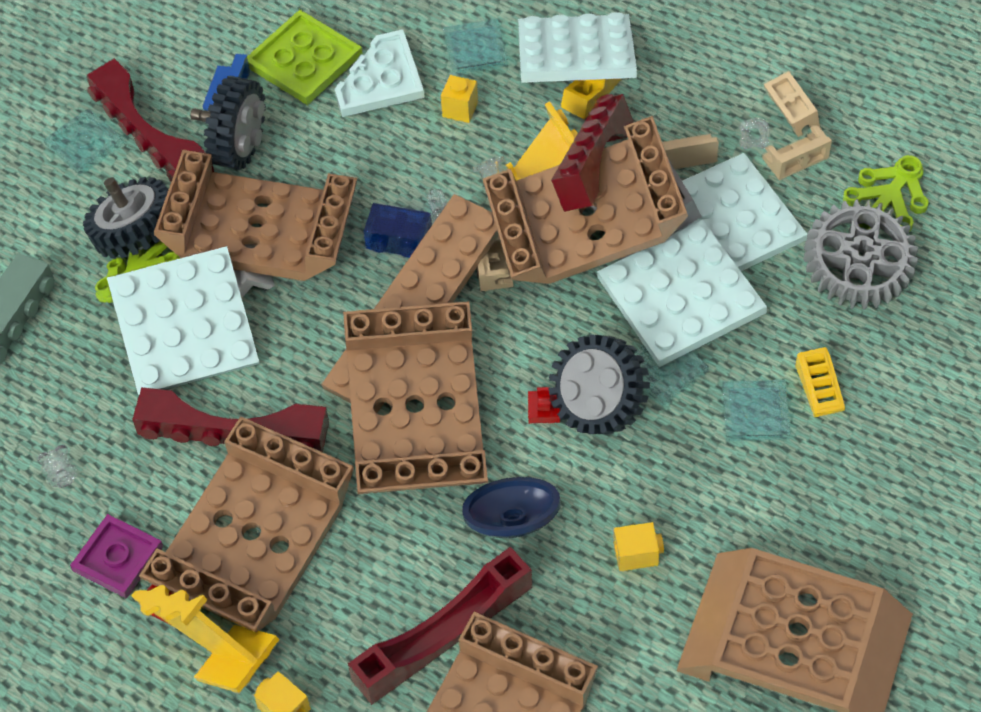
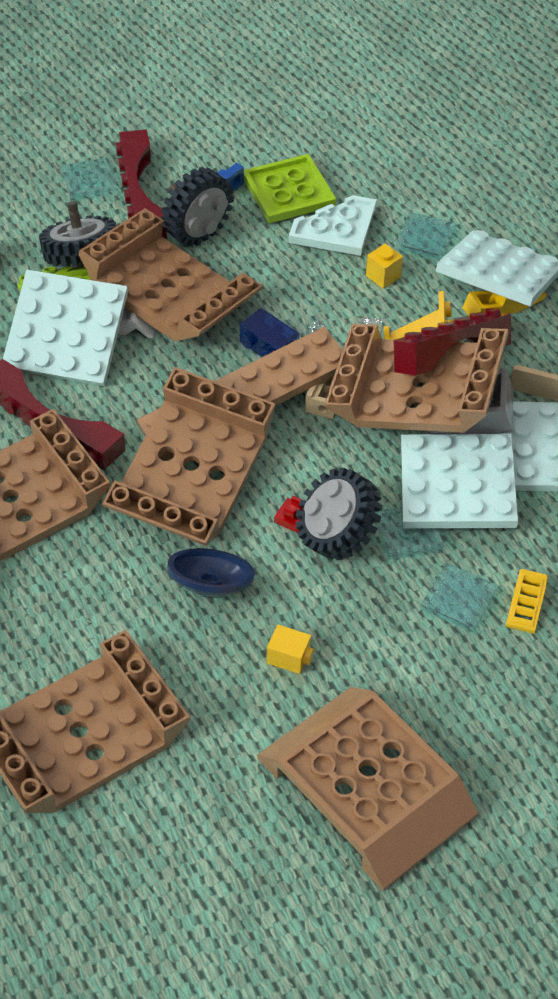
camera: 25 degrees right, 5 degrees down
(399, 658) = (42, 637): dark red arch -> none

